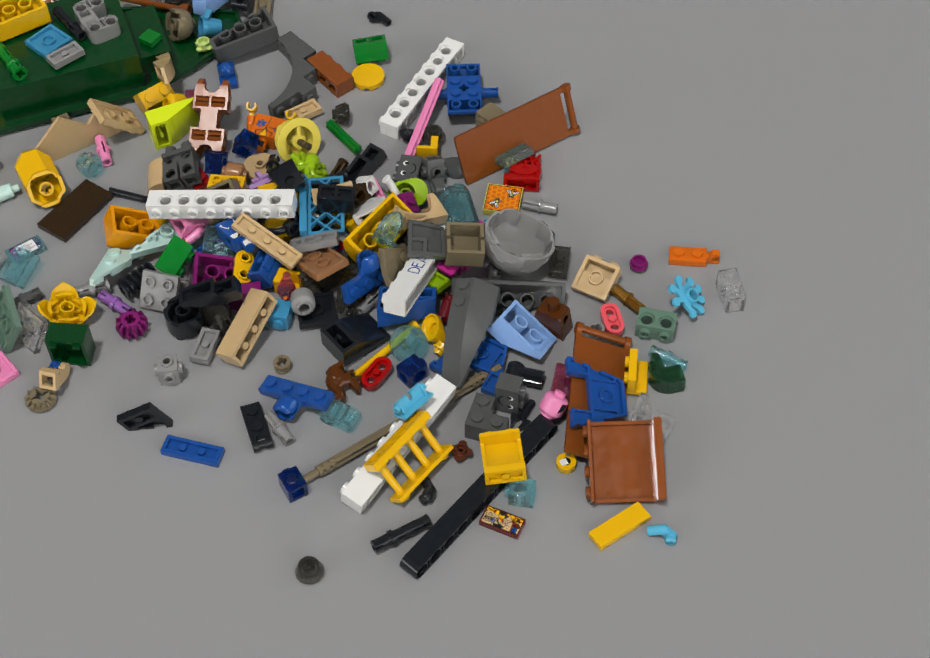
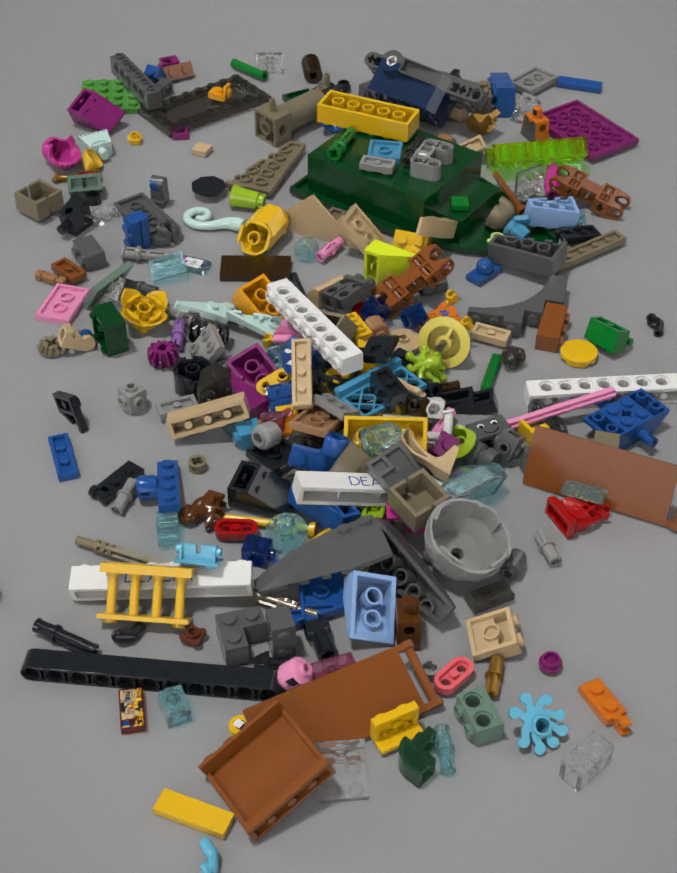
camera: 55 degrees right, 10 degrees down
(175, 256) = (243, 335): green brick -> none
(211, 292) = (212, 368): black slope -> none
(272, 163) = (407, 342): black axle -> none
(296, 490) = (66, 534): clear blue brick -> none
(502, 197) = (527, 516): tile -> none
(502, 456) = (195, 663): yellow panel -> none
(604, 395) = (336, 712): blue wing -> none

